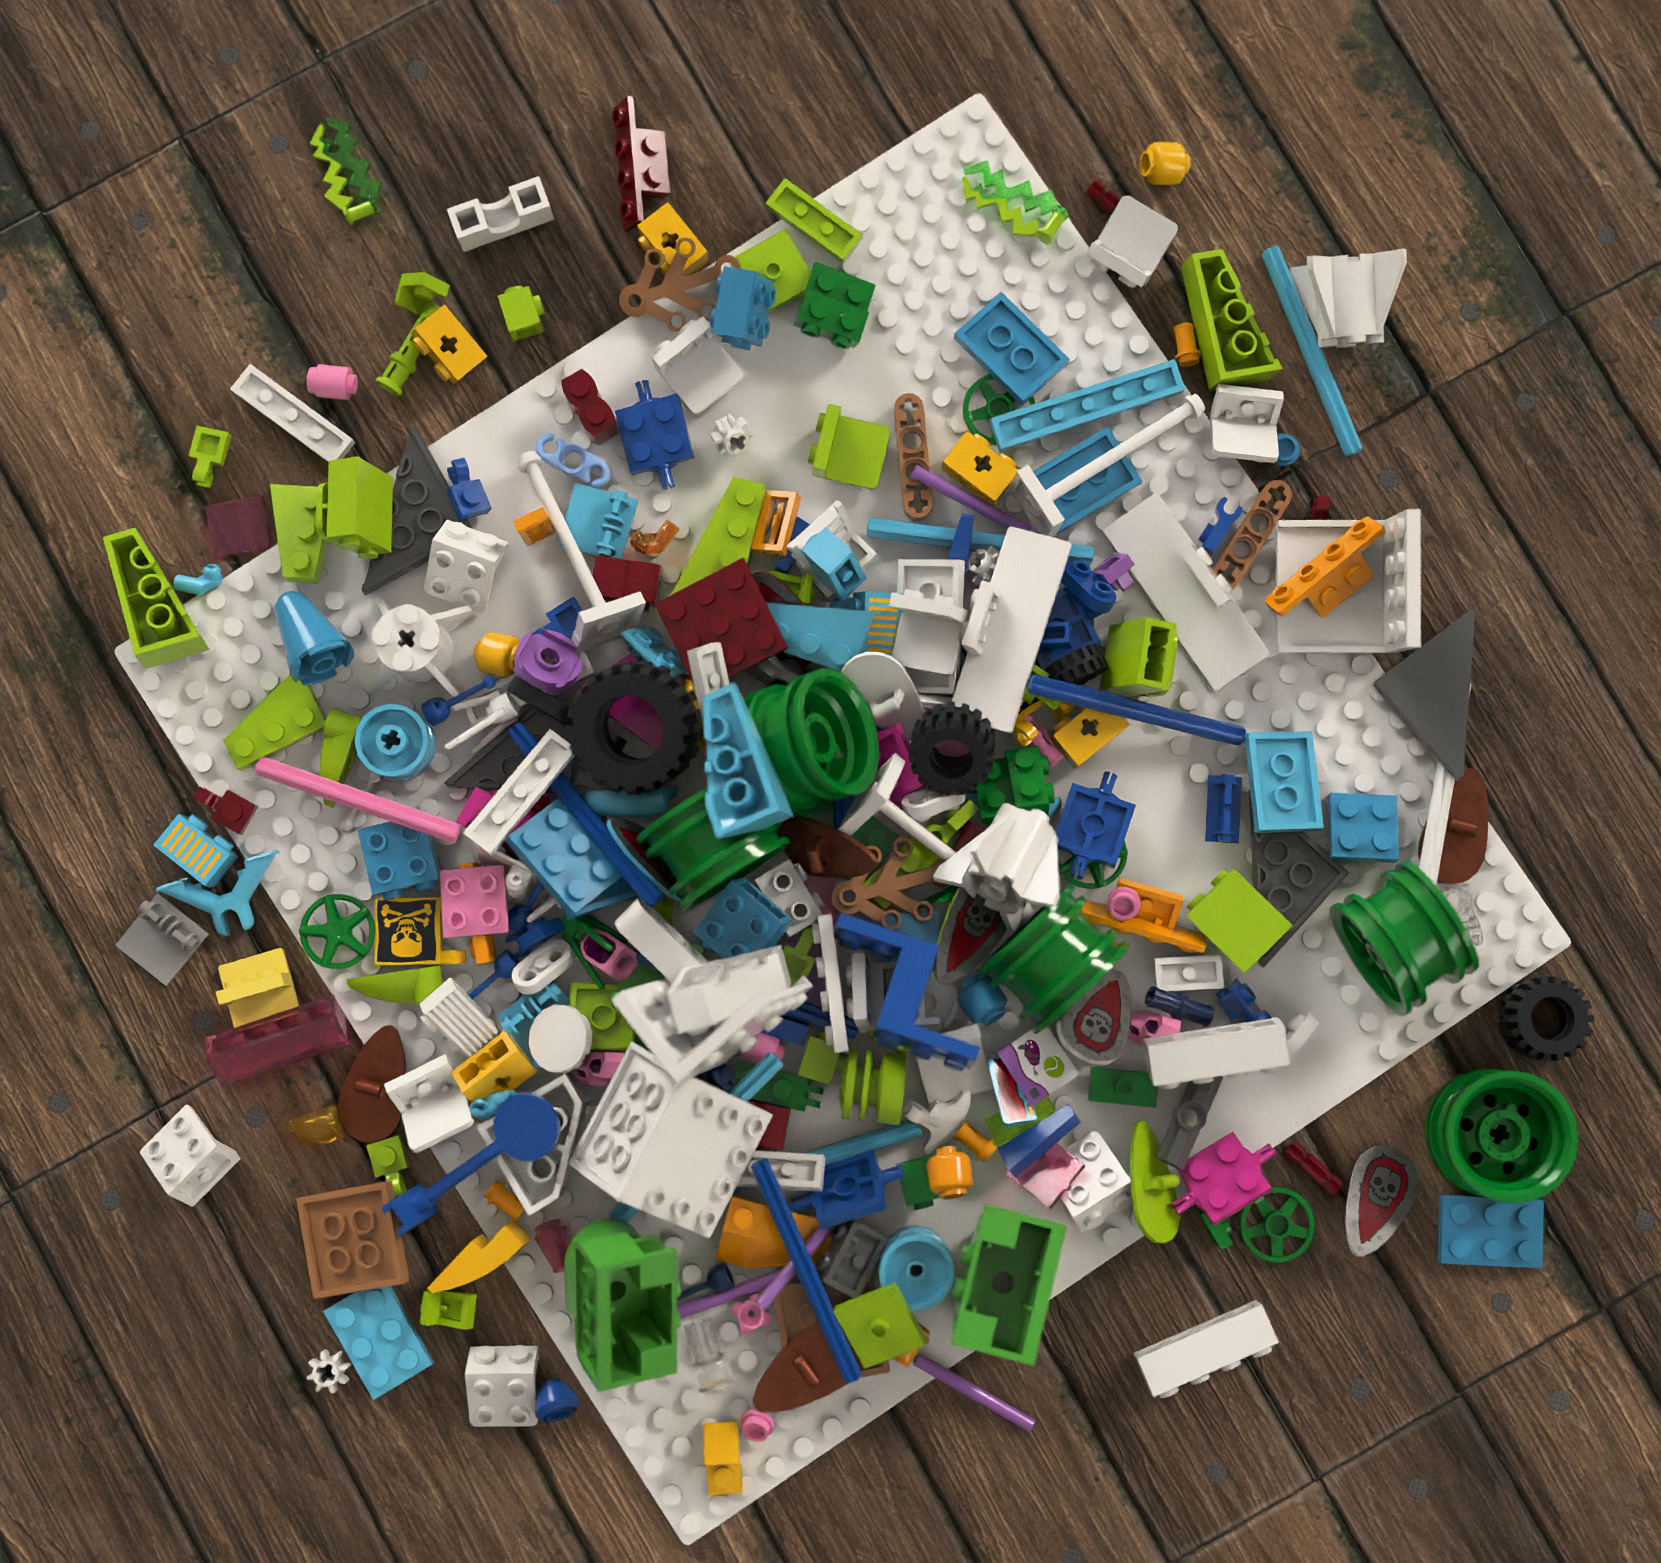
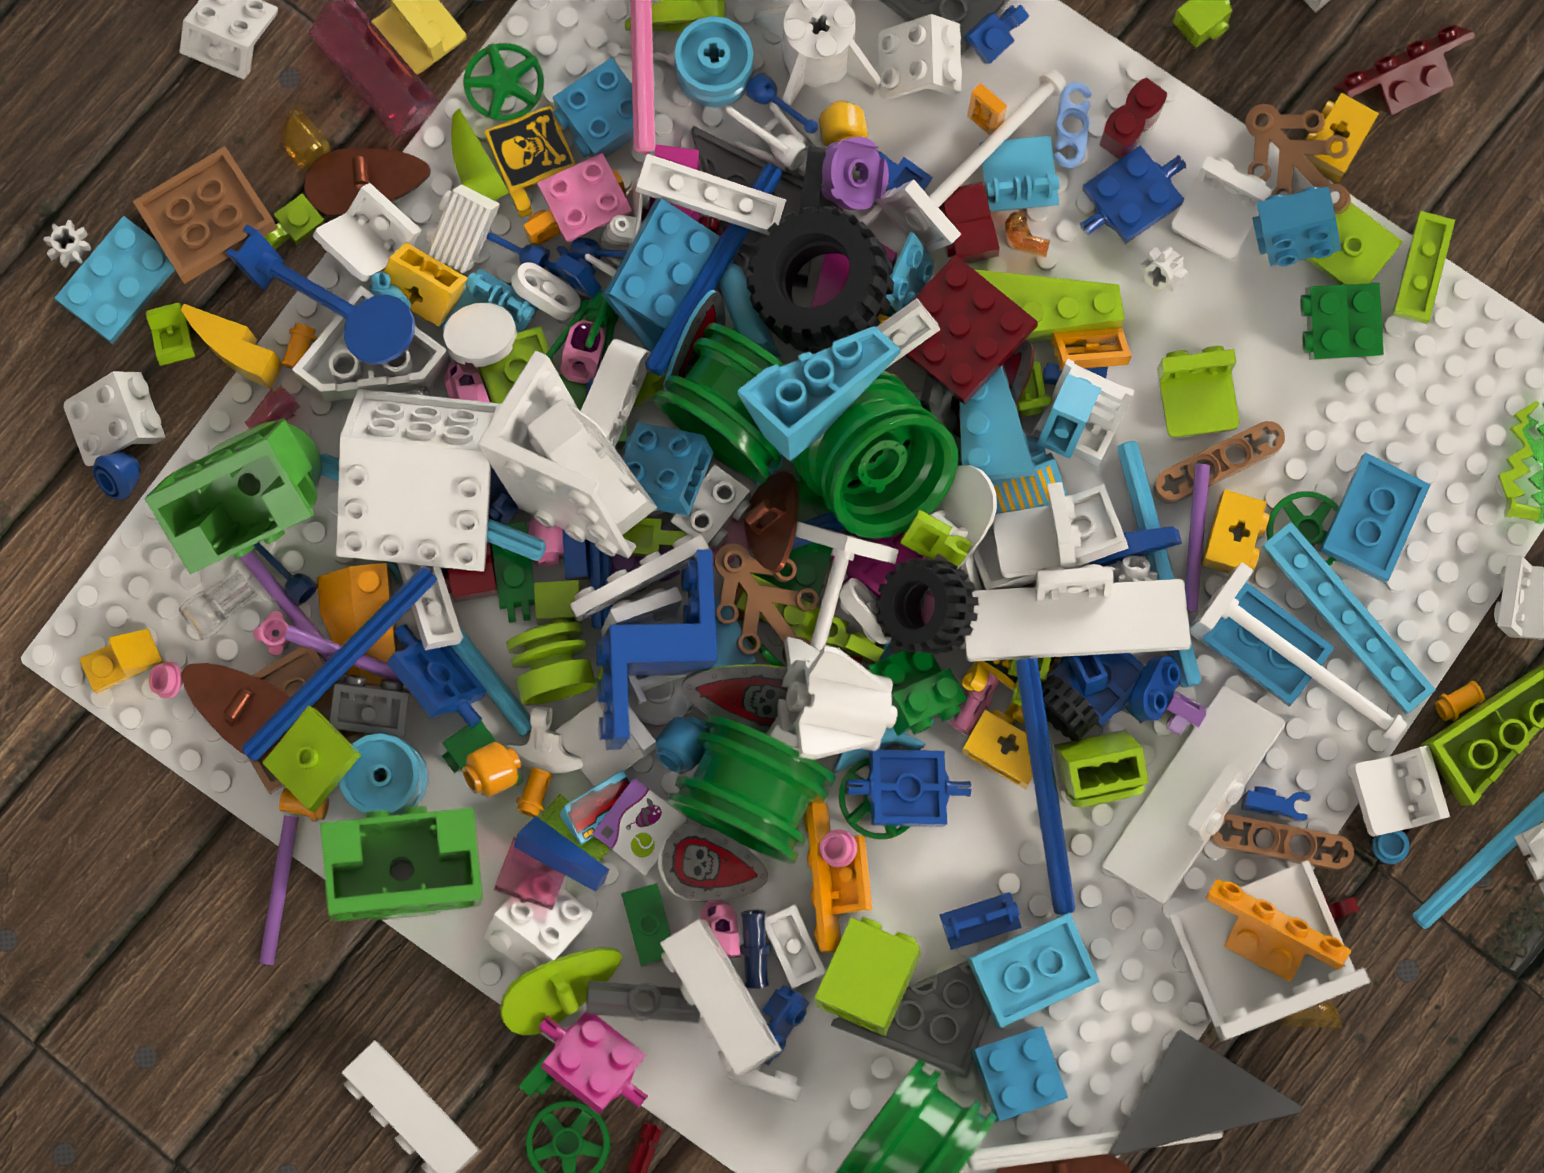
camera: 65 degrees right, 5 degrees down
(895, 719) = (931, 536): none -> lime plate

